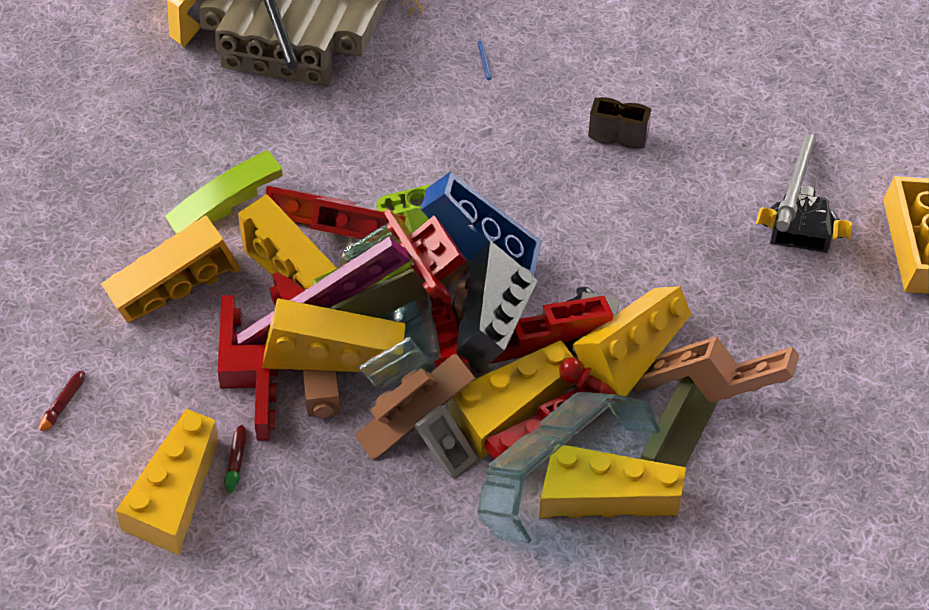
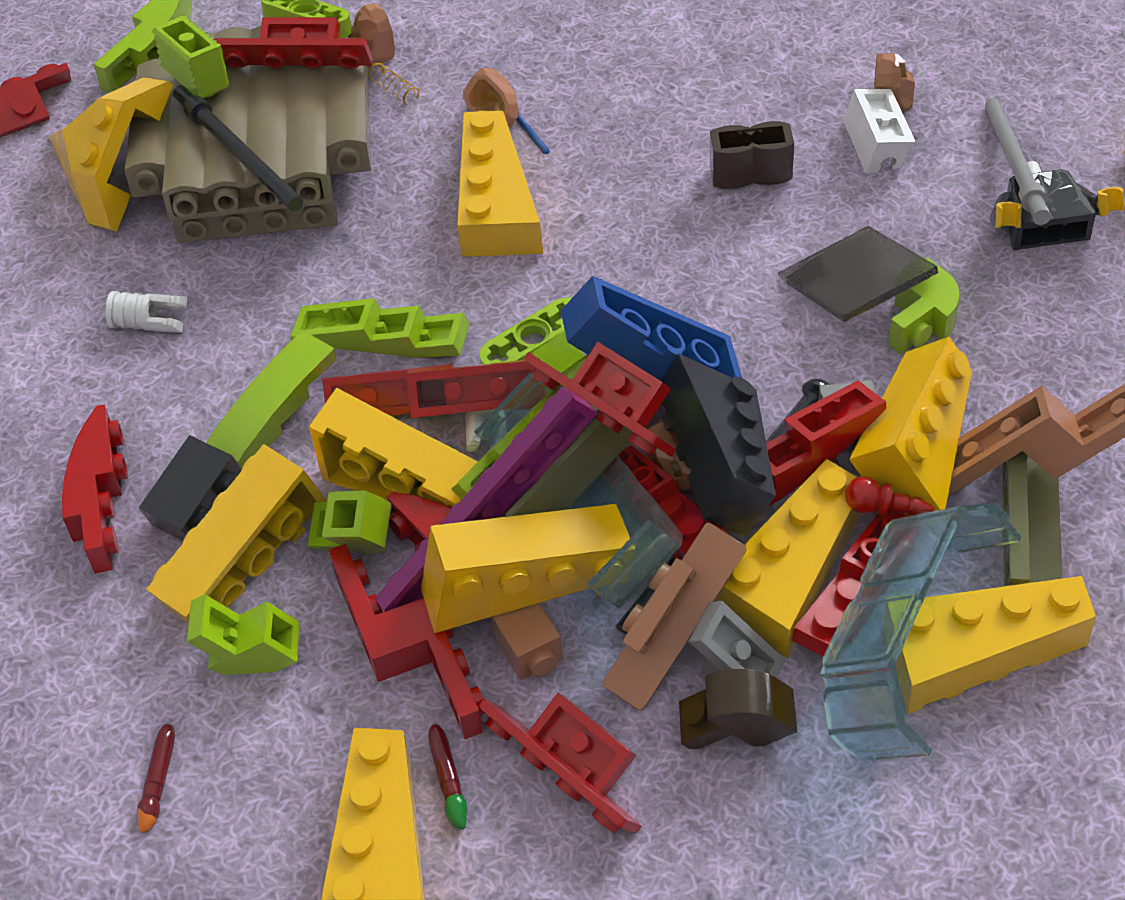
camera: 15 degrees left, 0 degrees up
(97, 206) = (90, 483): none -> red slope
(144, 336) = (243, 643): none -> lime brick
(154, 227) = (189, 487): none -> black brick
(176, 105) = (140, 311): none -> white hinge
(244, 282) = (350, 519): none -> lime brick
(317, 470) = (576, 750): none -> red bracket
(328, 168) = (391, 331): none -> lime slope
(432, 475) = (738, 704): none -> dark brown brick
(434, 98) = (494, 196): none -> yellow wedge
(466, 30) = (491, 92): none -> rock
(649, 225) = (857, 273): none -> clear smoke piece
(687, 263) = (925, 311): none -> lime brick
(717, 130) = (877, 128): none -> white hinge
(743, 103) = (893, 75): none -> nougat rock

